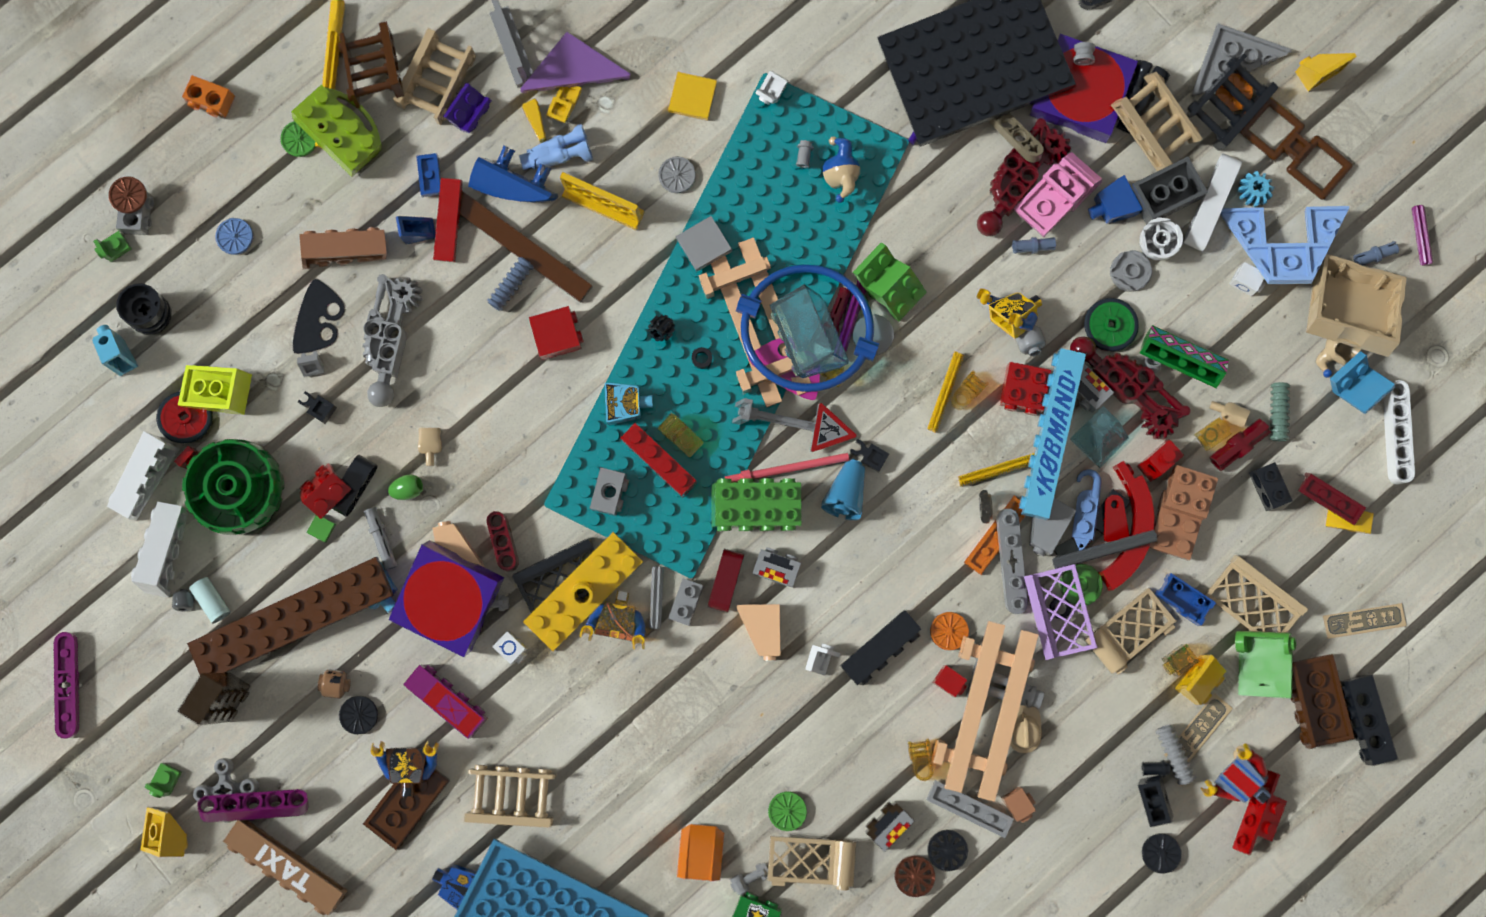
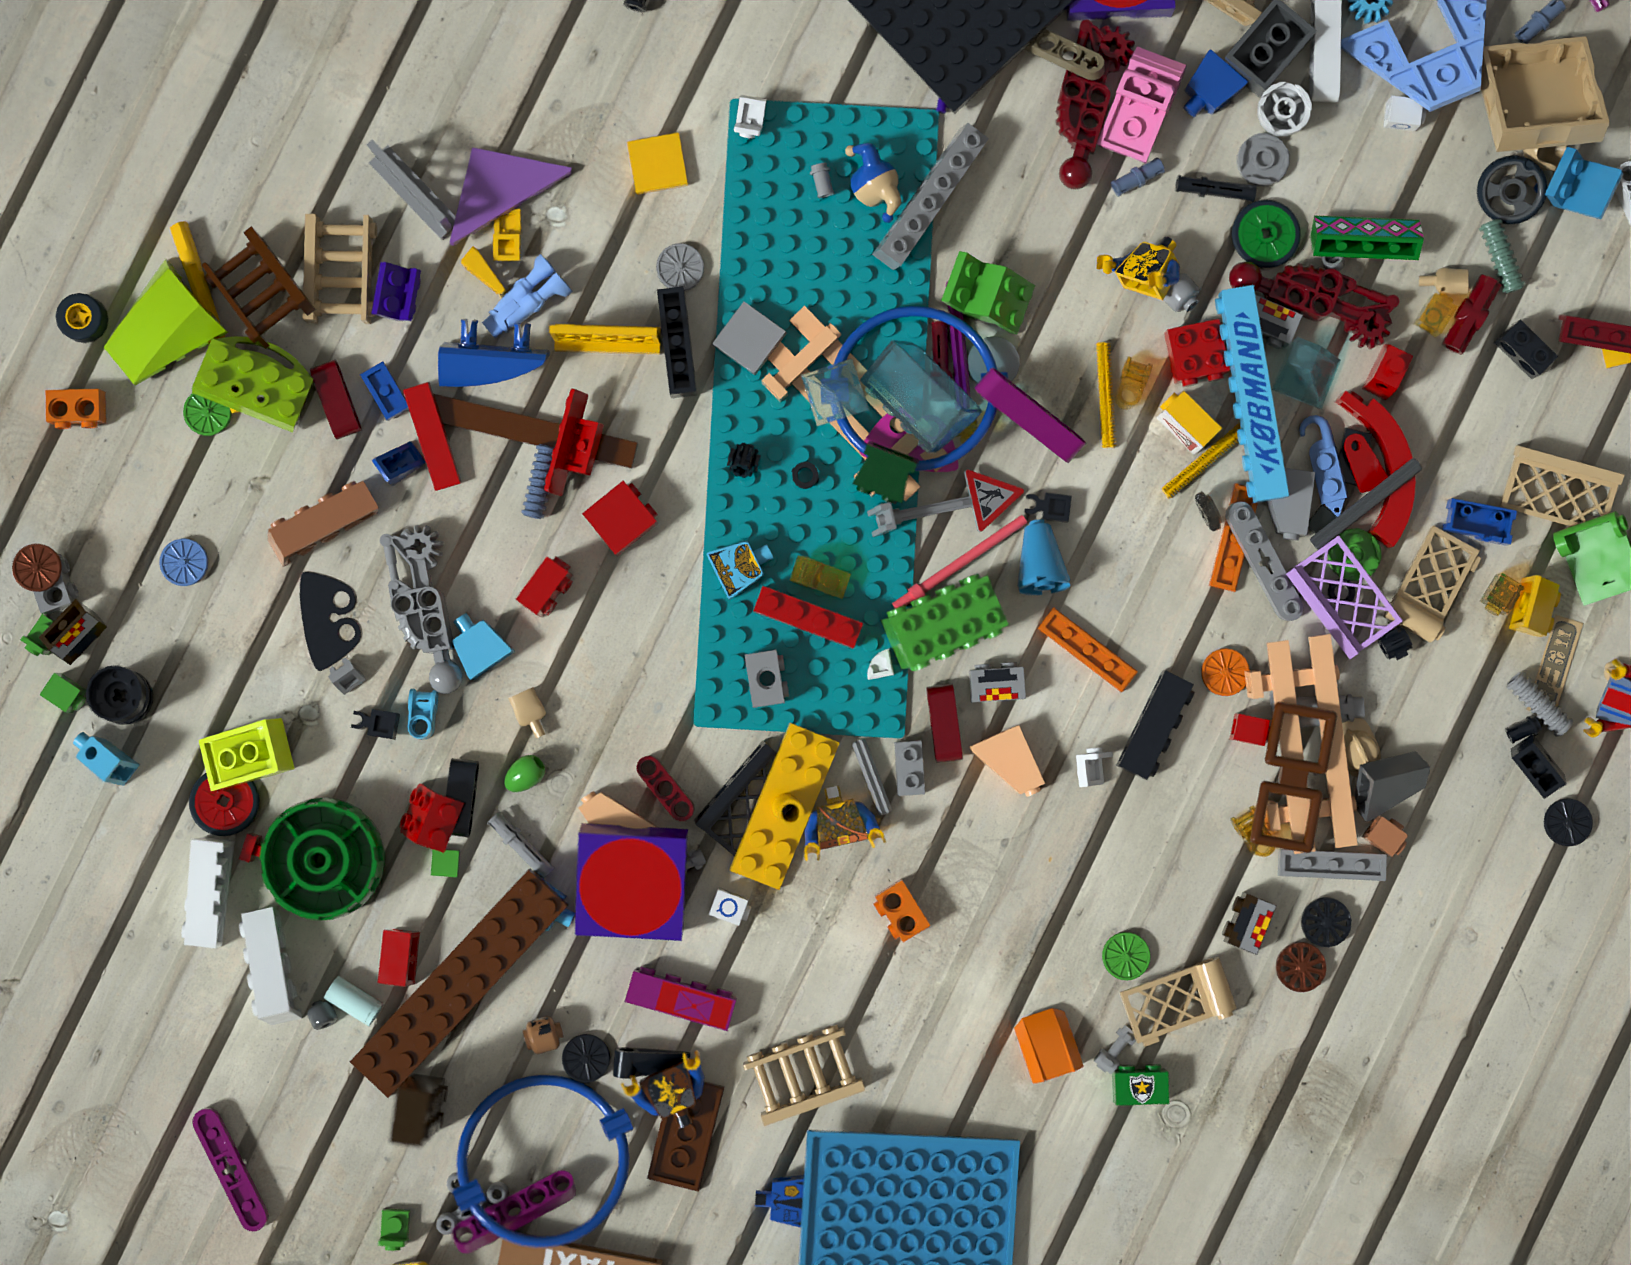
camera: 30 degrees left, 5 degrees up
(106, 291) = (64, 693): none -> bright green brick
(132, 251) = (72, 632): none -> brick
(226, 777) = (470, 1194): none -> blue piece
(235, 31) = (72, 316): none -> black wheel
(256, 582) = (398, 957): none -> red hinge
(292, 65) = (161, 327): none -> lime wedge
(354, 412) = (422, 711): none -> medium azure piece
(392, 166) = (335, 399): none -> dark red beam
(398, 735) = (643, 1061): none -> black piece
(414, 383) = (479, 646): none -> medium azure torso
(479, 358) = (545, 586): none -> red brick
(545, 266) = (575, 444): none -> red bracket
(640, 704) = (907, 907): none -> orange brick
(650, 225) = (677, 342): none -> black brick
(697, 518) = (880, 665): none -> white tile
(747, 305) = (834, 392): none -> clear light blue slope
(758, 377) = (885, 472): none -> dark green hips
(854, 571) = (1087, 650): none -> orange tile
(877, 196) = (930, 196): none -> light grey brick
(882, 381) = (1030, 415): none -> magenta beam
(967, 729) = (1293, 777): none -> reddish brown bar
(997, 434) = (1188, 421): none -> yellow piece
(1037, 765) = (1389, 782): none -> dark grey slope
(1079, 272) = (1185, 184): none -> black pin
(1084, 662) = (1395, 643): none -> black gear
(1182, 511) = (1436, 421): nougat piece -> none
(1322, 354) = (1522, 210): none -> dark grey wheel

